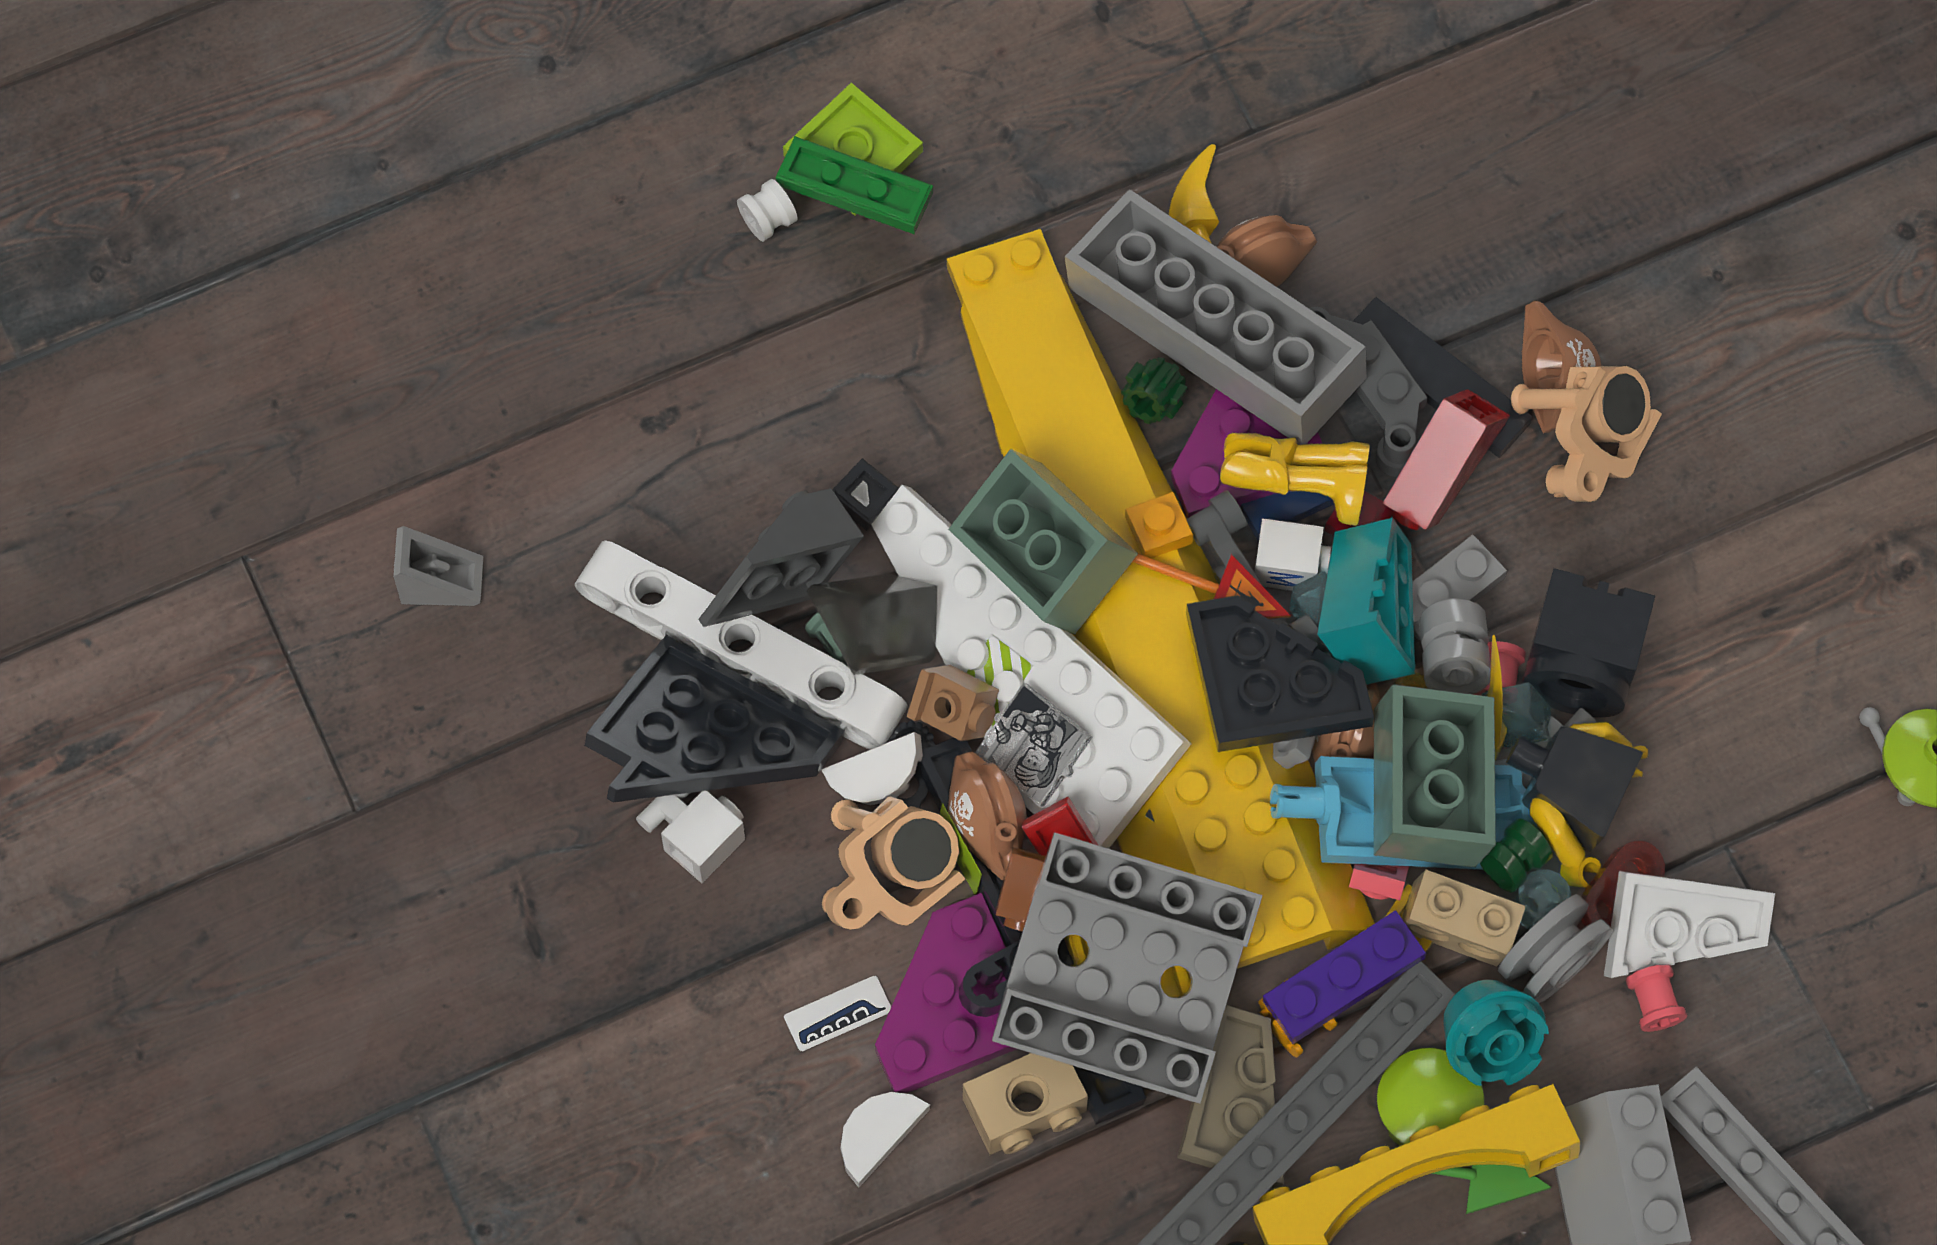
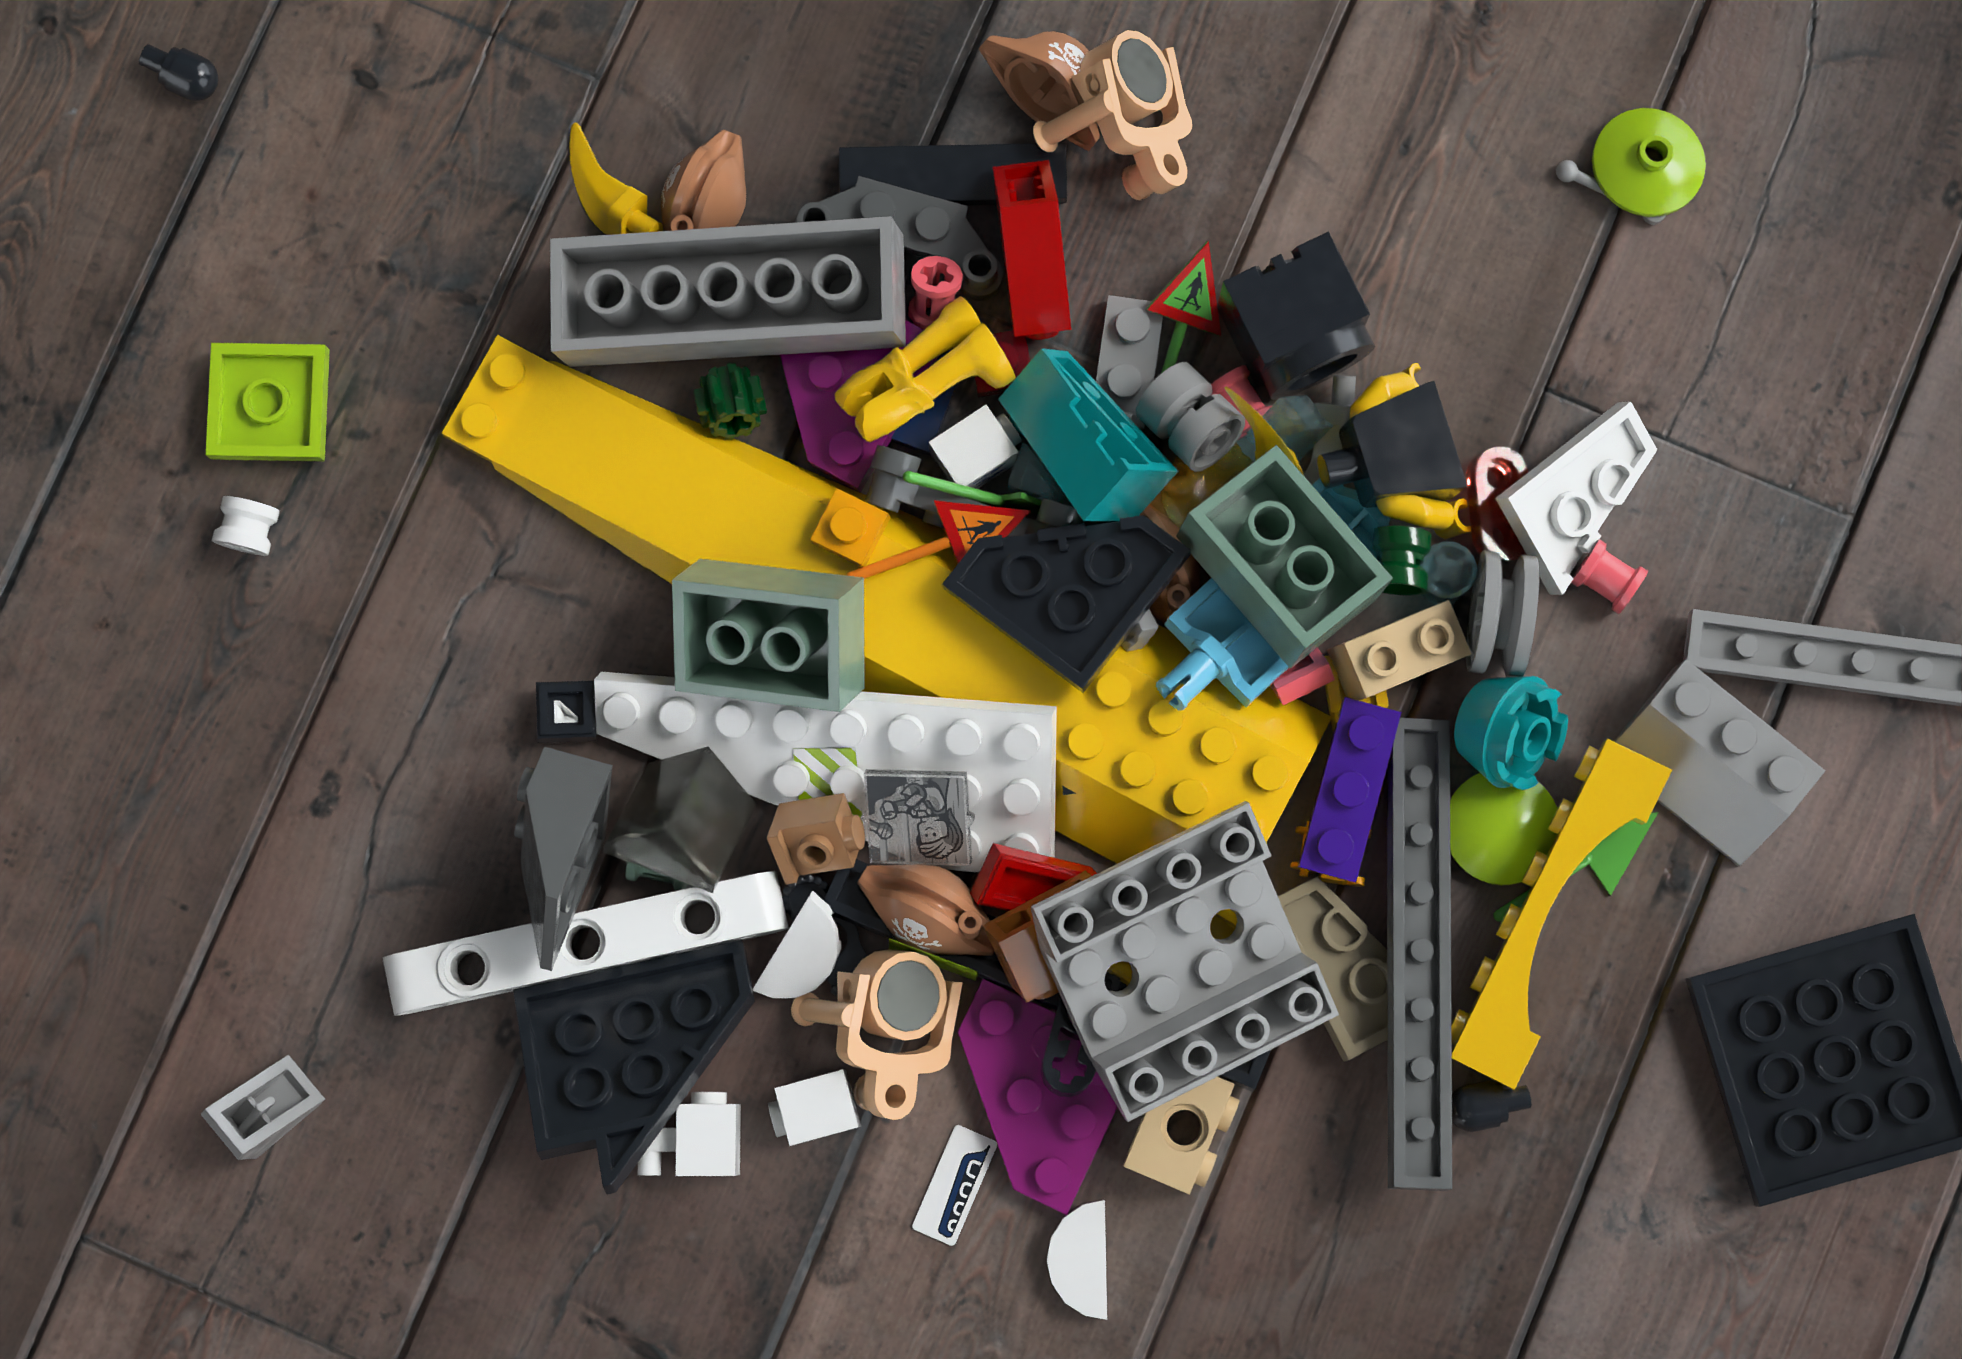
camera: 35 degrees left, 15 degrees up
(792, 877) = (814, 1108): none -> white brick
(854, 185) = (302, 438): green tile -> none
(1288, 602) = (1014, 501): none -> bright green piece
(1355, 425) = (929, 289): none -> coral bush
(1525, 582) = (1189, 301): none -> piece

